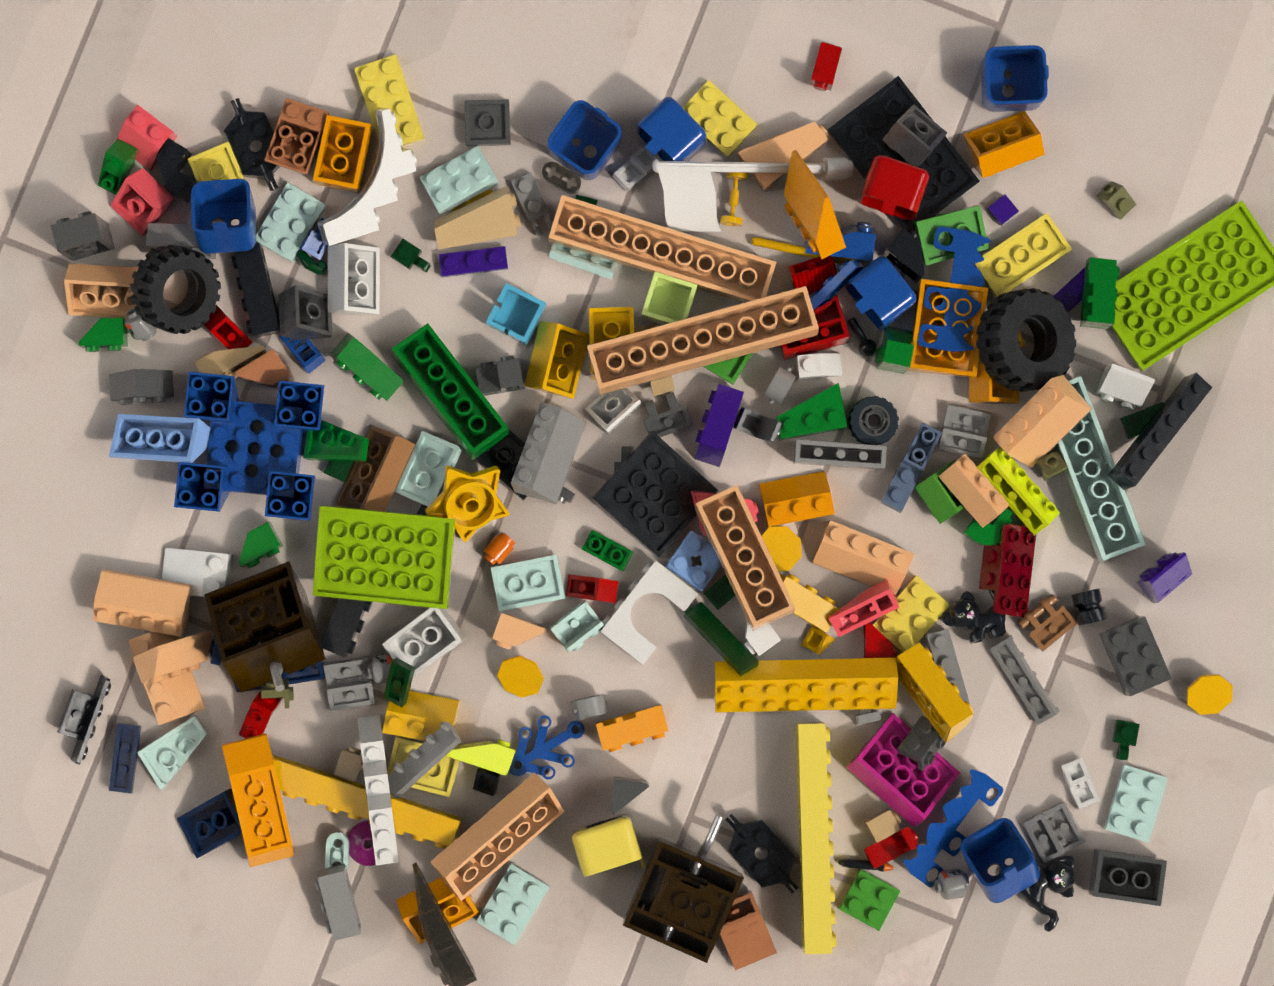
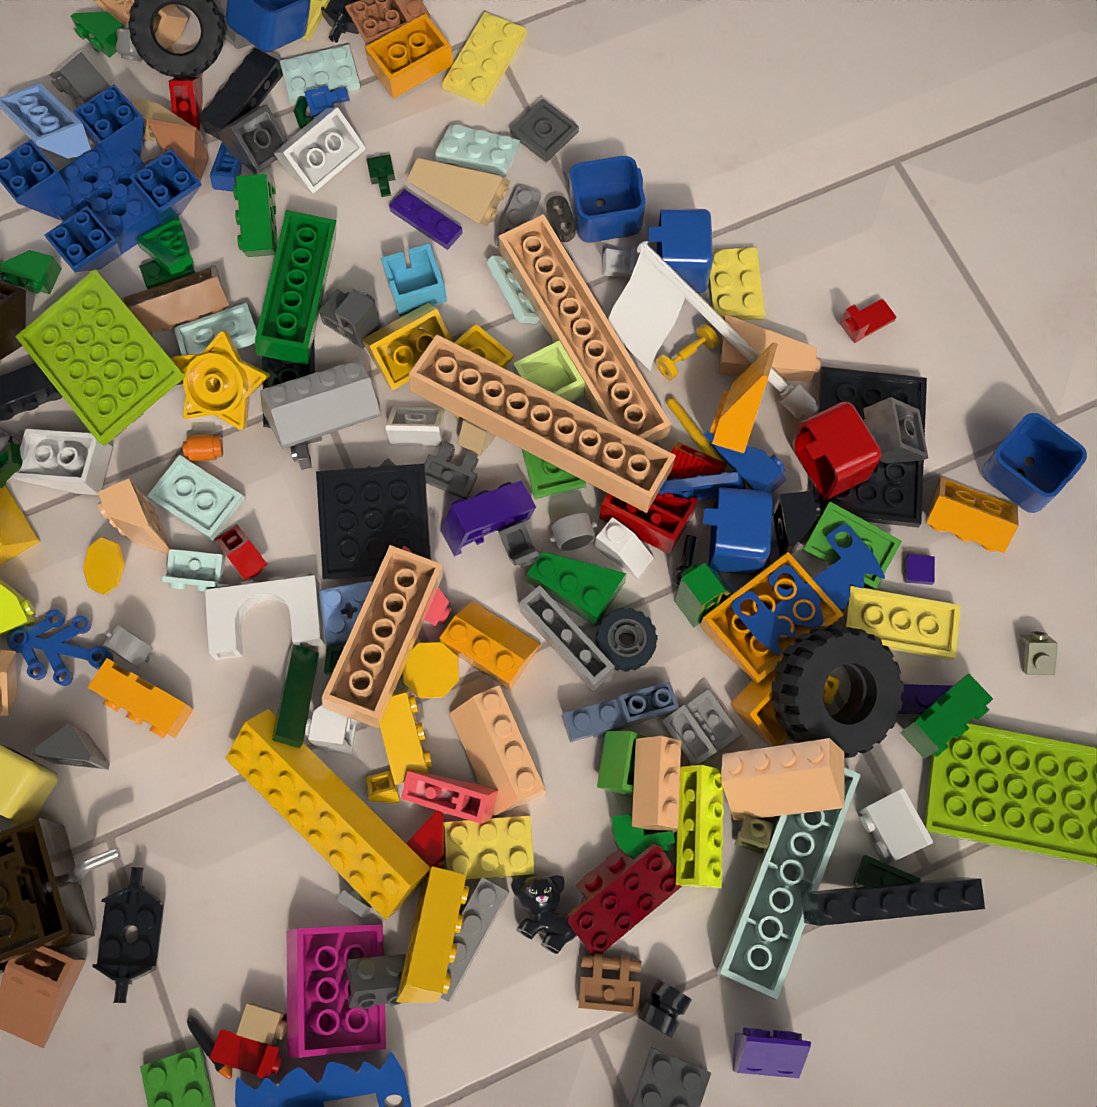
camera: 45 degrees right, 15 degrees down
(390, 162) = (438, 90): white arch -> none
(607, 550) = (288, 534): green slope -> none
(814, 840) = (180, 972): light yellow brick -> none
(1024, 680) = (533, 1020): light grey hinge -> none

